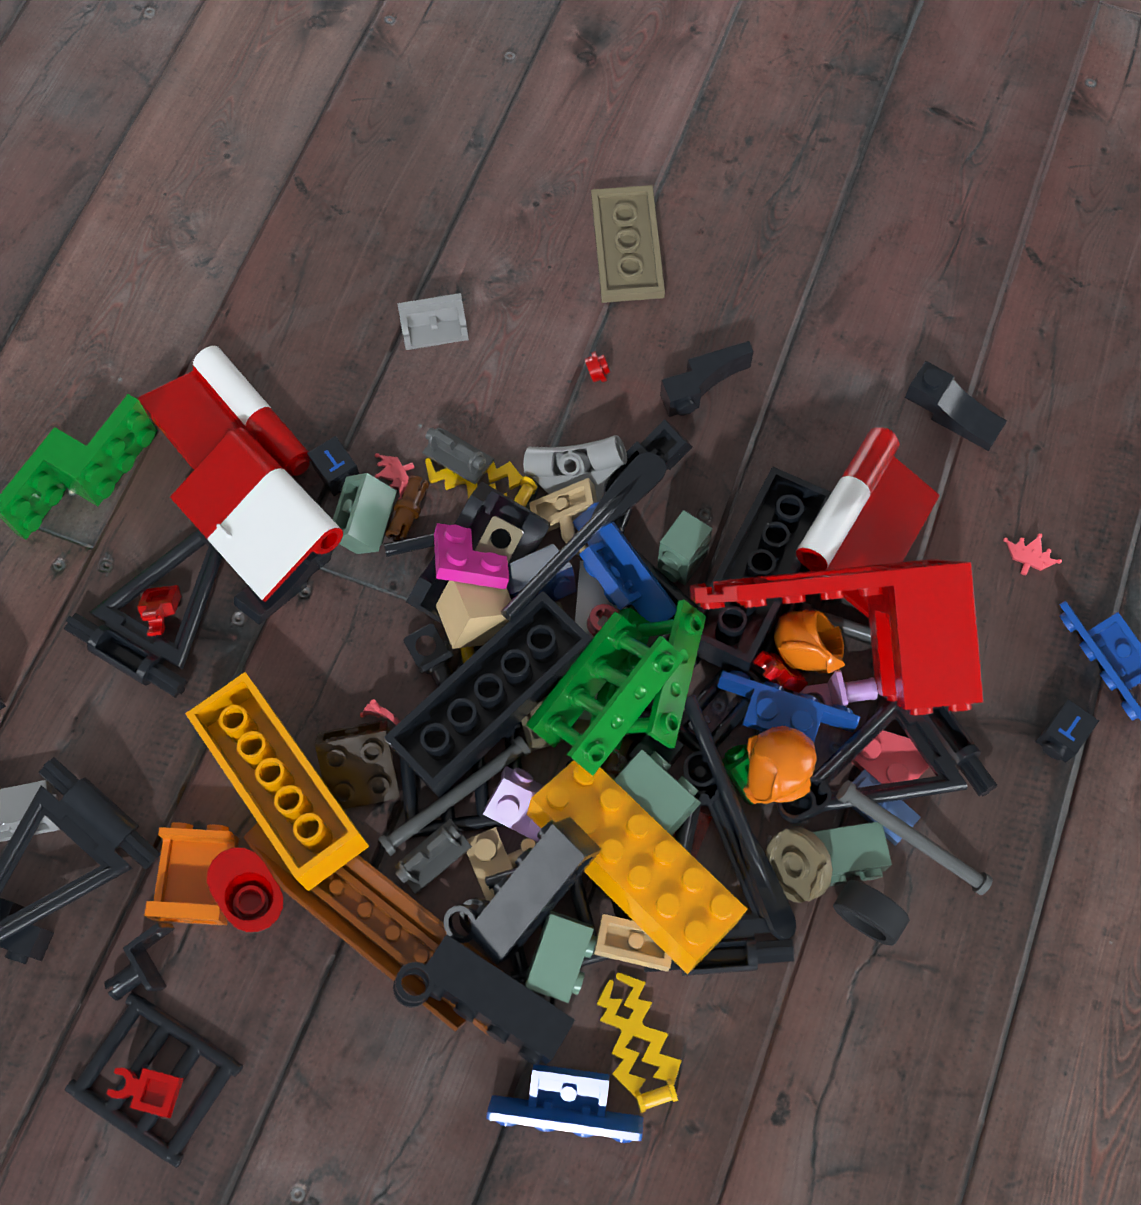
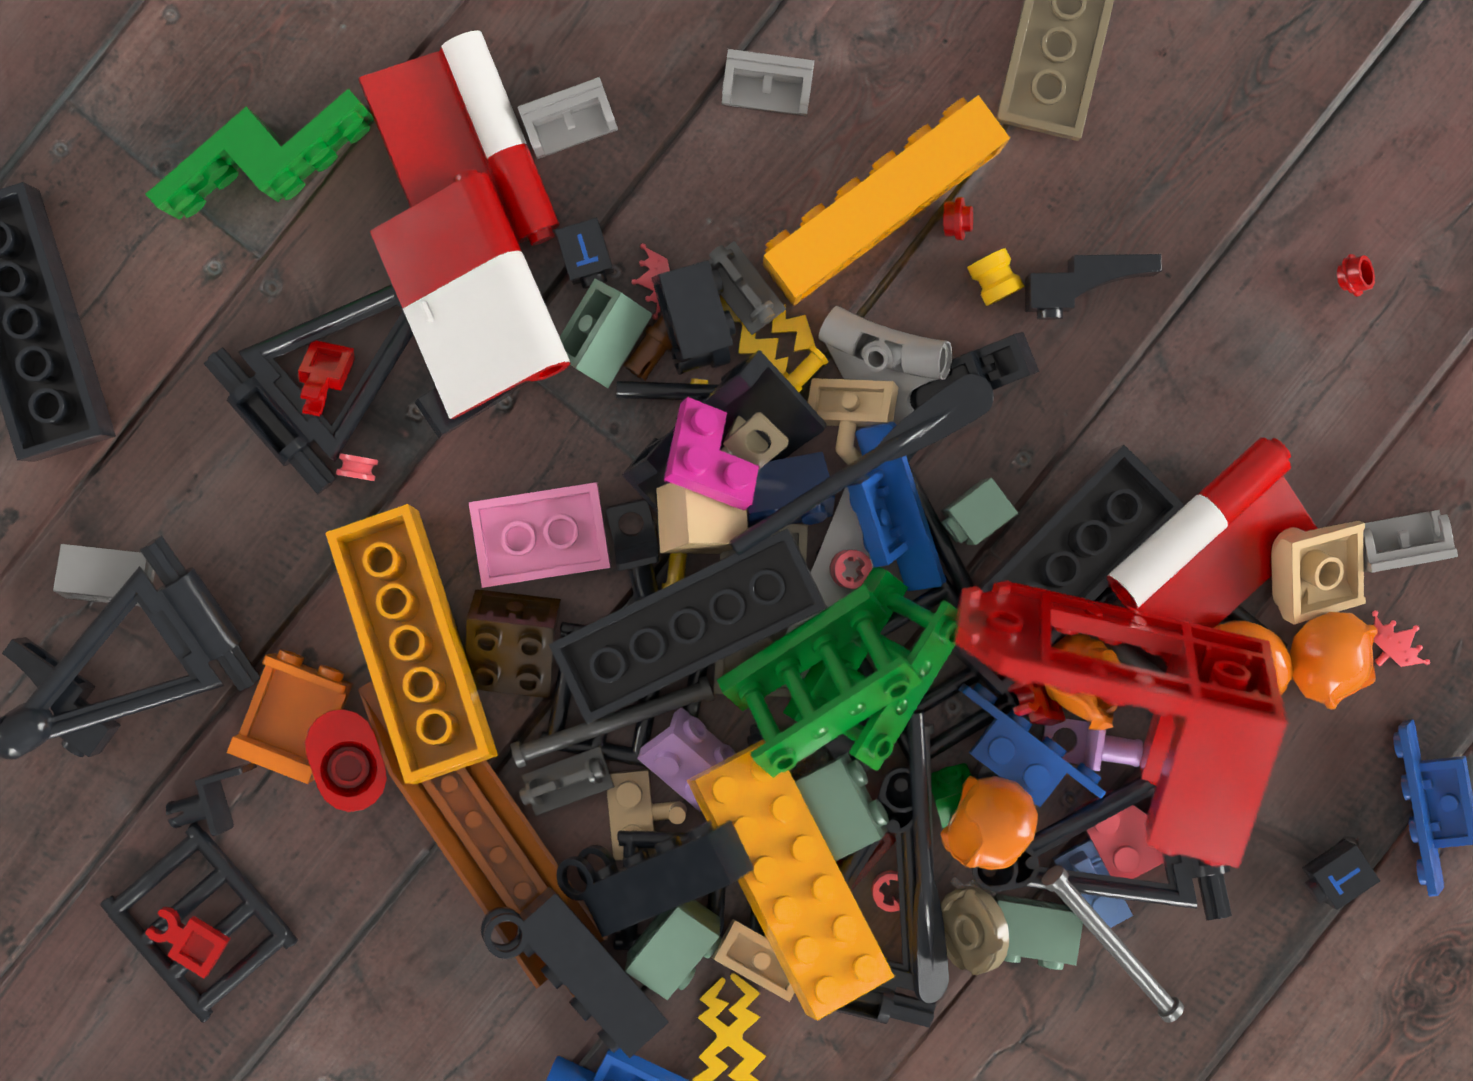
camera: 20 degrees right, 20 degrees up
(201, 667) = (357, 467): none -> coral bush
(297, 384) = (568, 118): none -> light grey hinge
(355, 673) = (539, 535): none -> bright pink plate
(376, 710) = (561, 601): coral piece -> none
(427, 479) = (695, 316): none -> black hinge
(539, 365) = (885, 200): none -> light orange brick
(638, 395) = (995, 276): none -> yellow wheel
(713, 868) = (878, 894): none -> coral bush
(871, 912) = (1032, 1009): black tyre -> none
(890, 320) = (1356, 274): none -> red plate
(950, 515) = (1318, 571): none -> tan slope
(954, 407) = (1386, 424): black slope -> none
(994, 570) = (1333, 657): none -> orange helmet
(1004, 482) = (1407, 541): none -> light grey hinge

